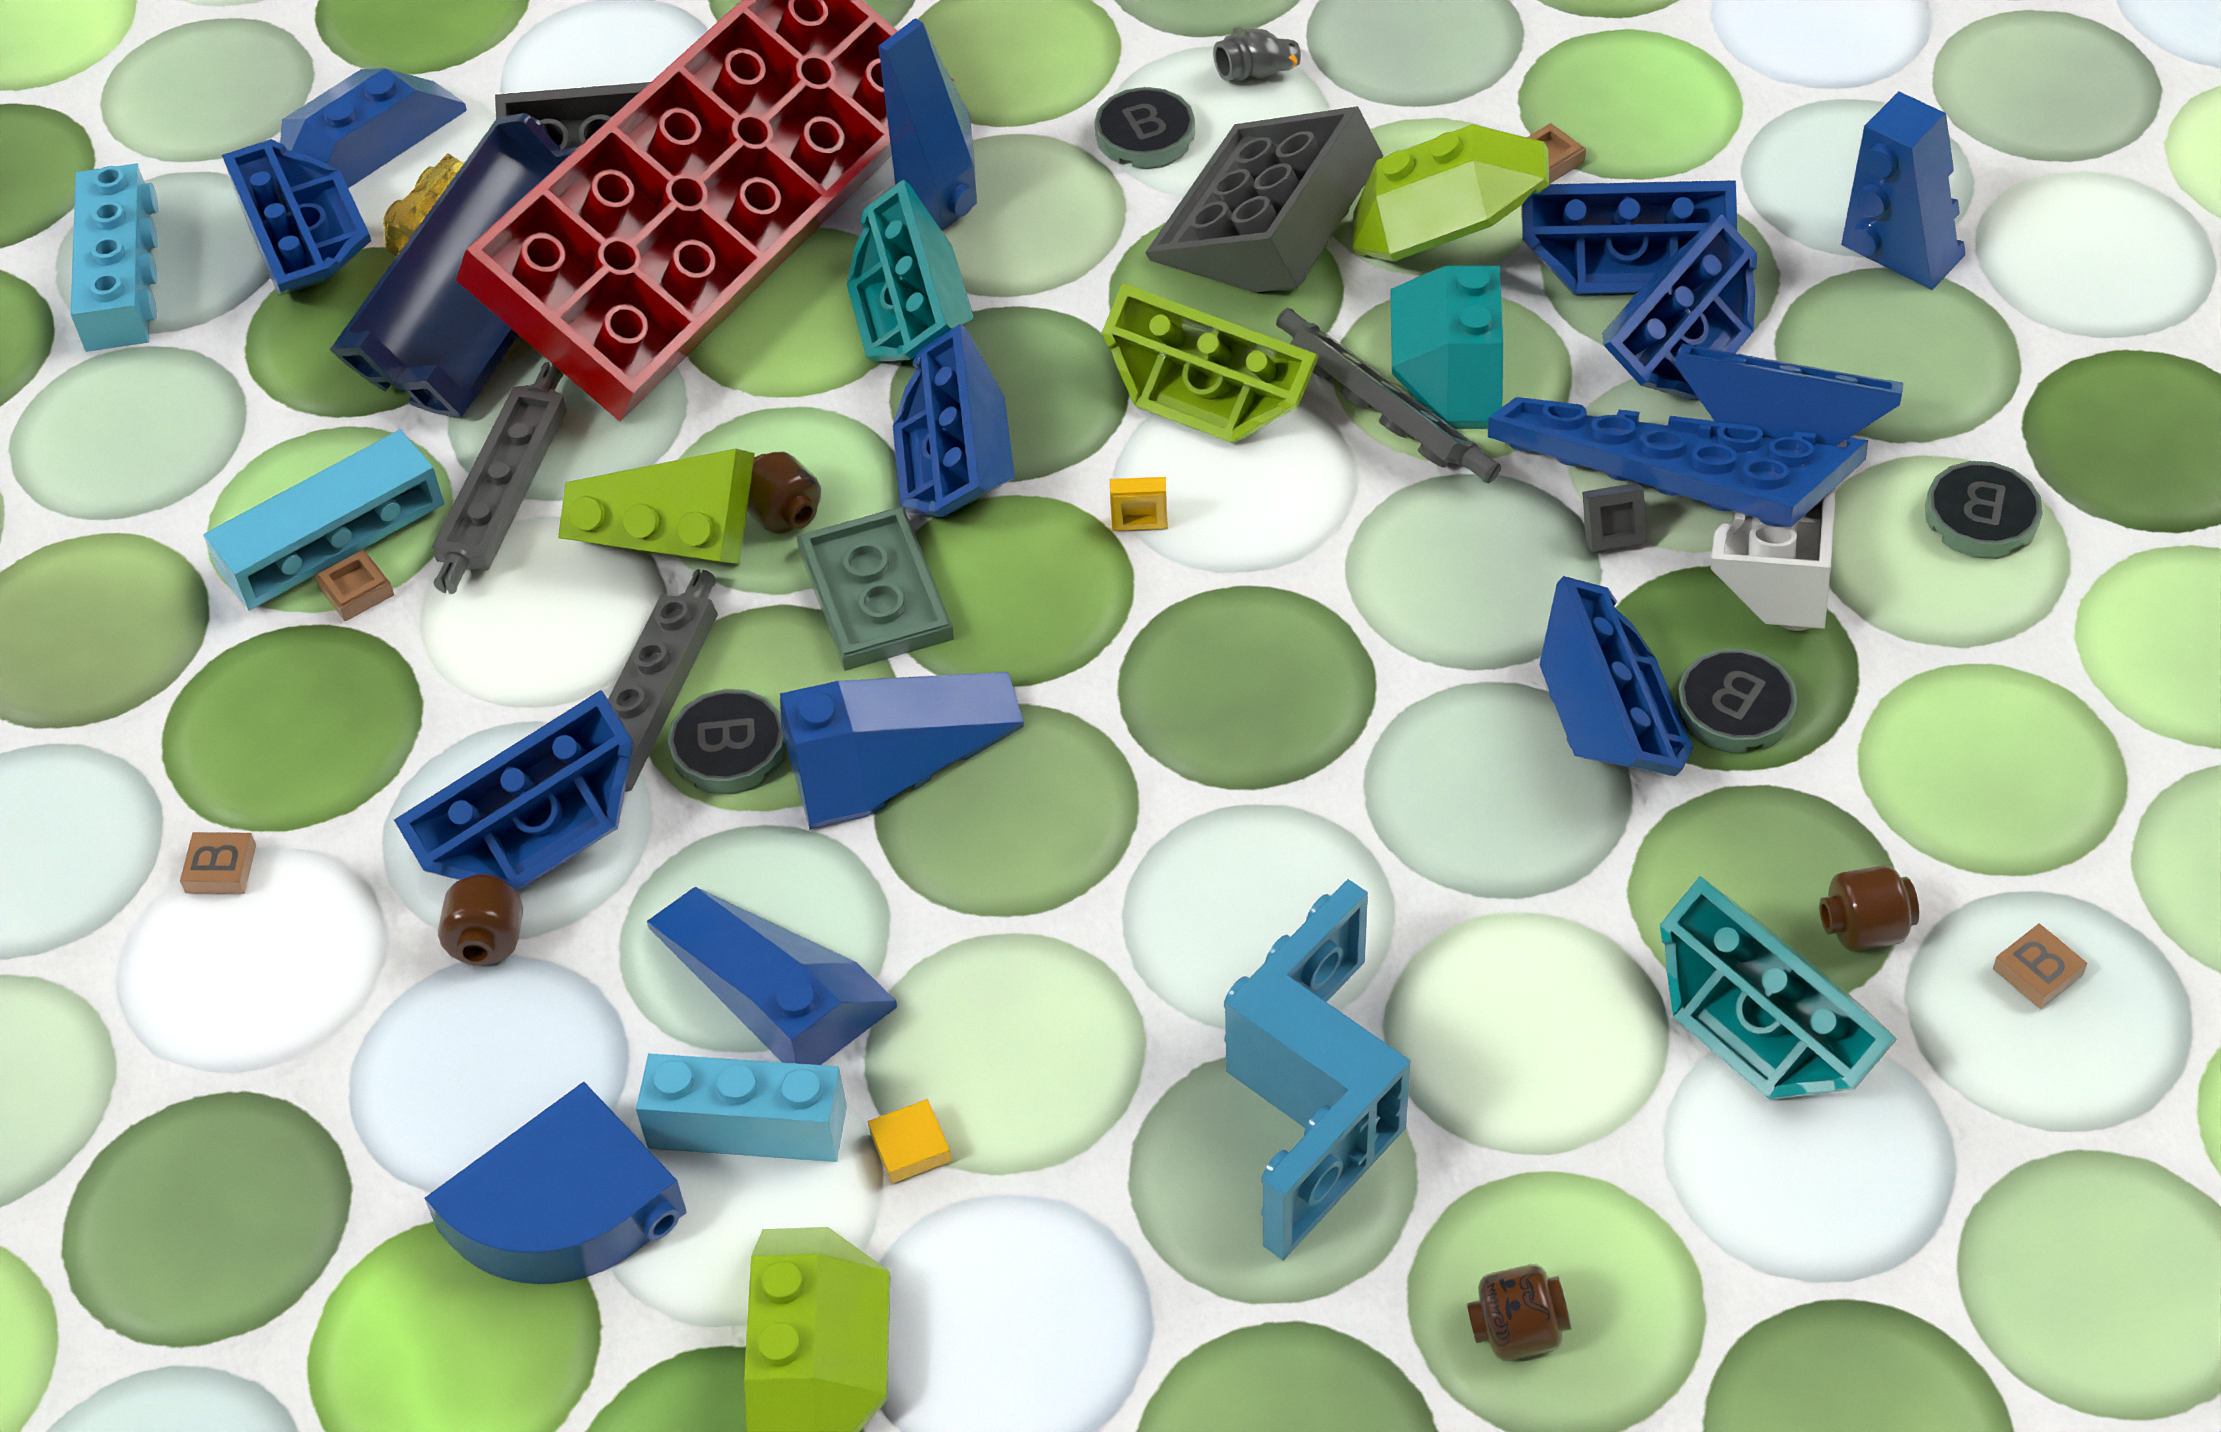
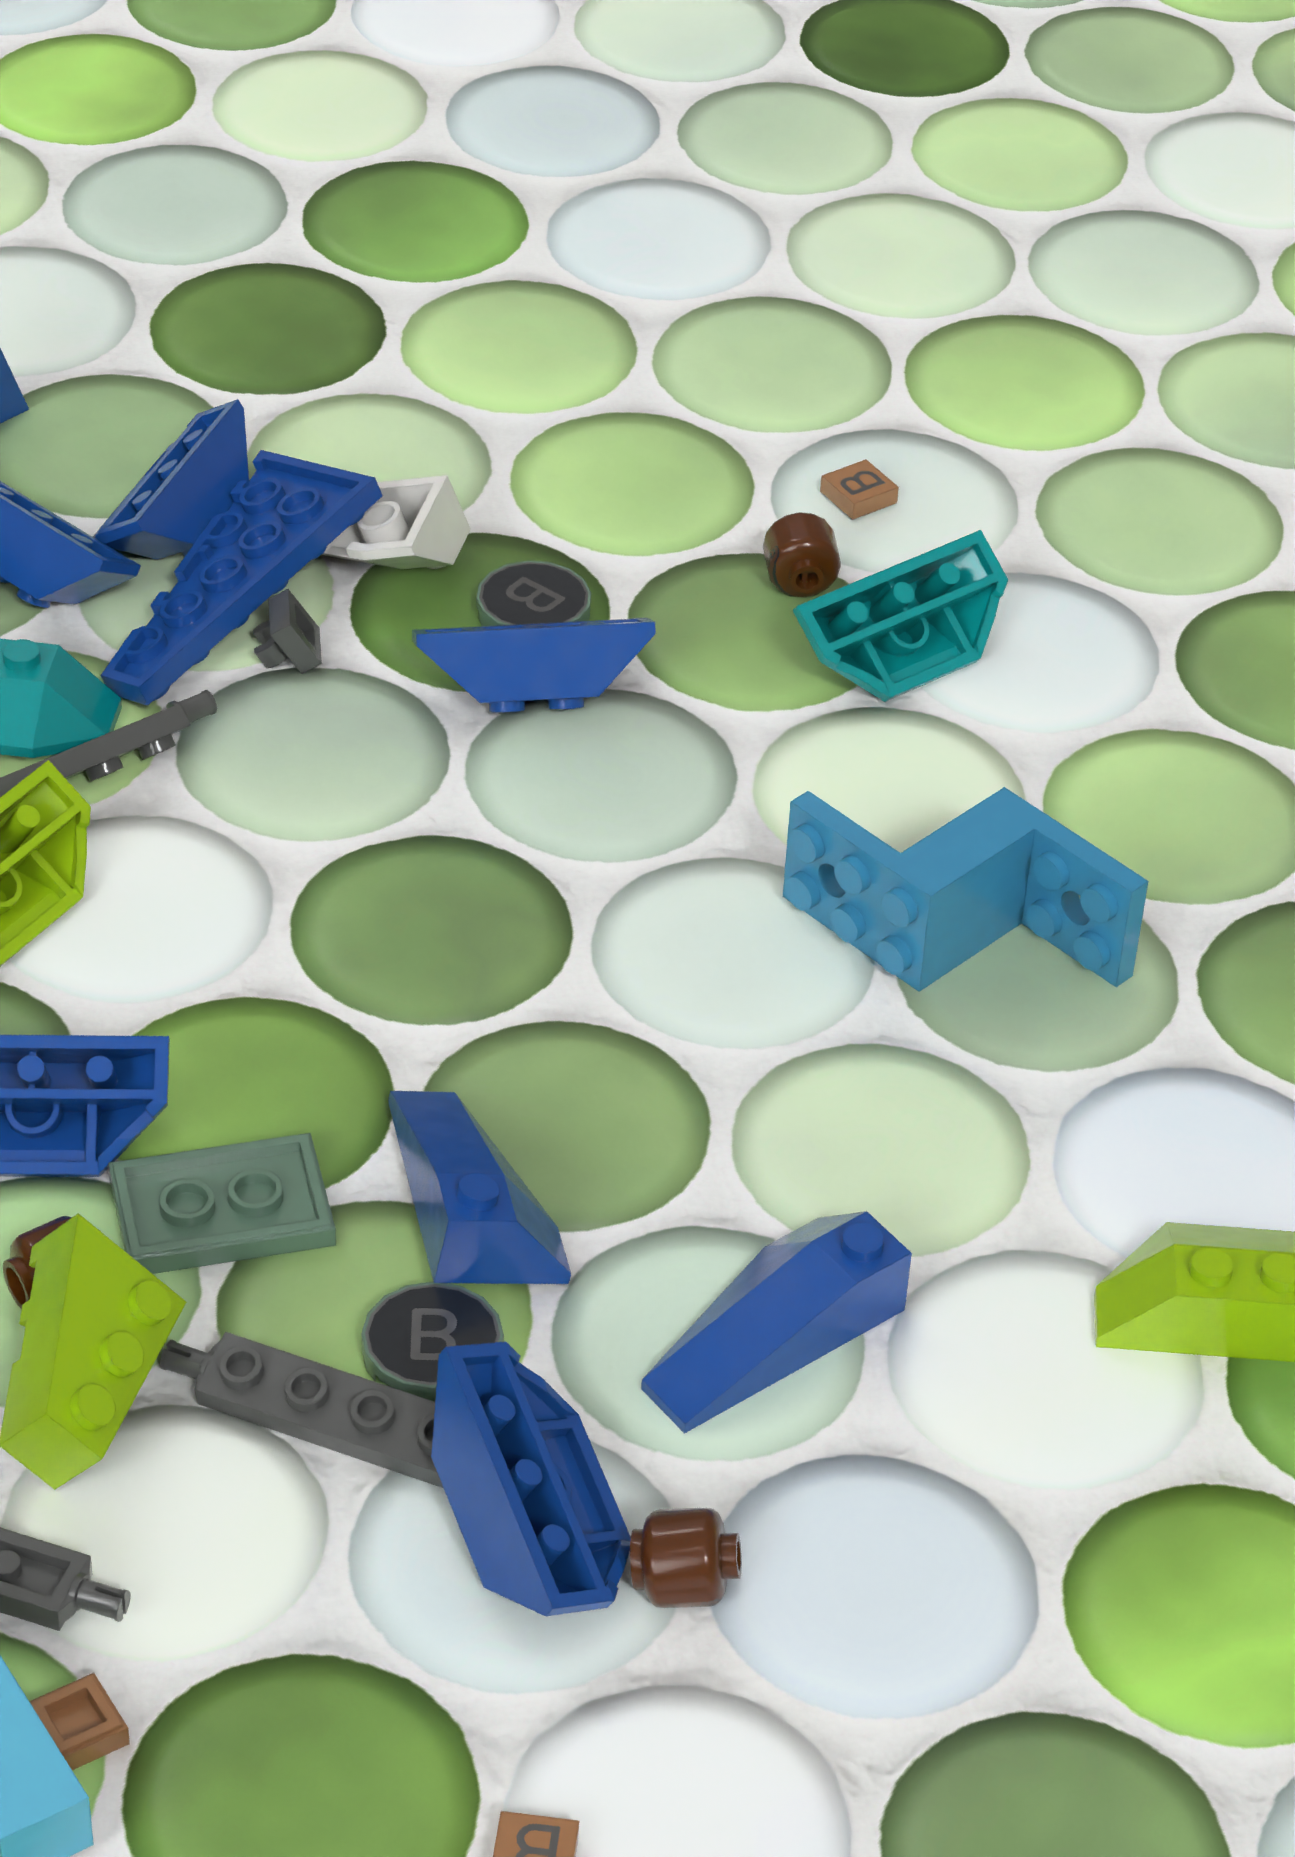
camera: 90 degrees left, 10 degrees down
(558, 1196) = (1060, 1489): blue brick -> none
(742, 1107) = (965, 1328): medium azure brick -> none
(909, 1141) = (997, 1216): yellow tile -> none
(1138, 503) = (174, 962): yellow tile -> none
(1519, 1312) = (1208, 815): reddish brown head -> none
(1983, 508) = (335, 424): tile -> none

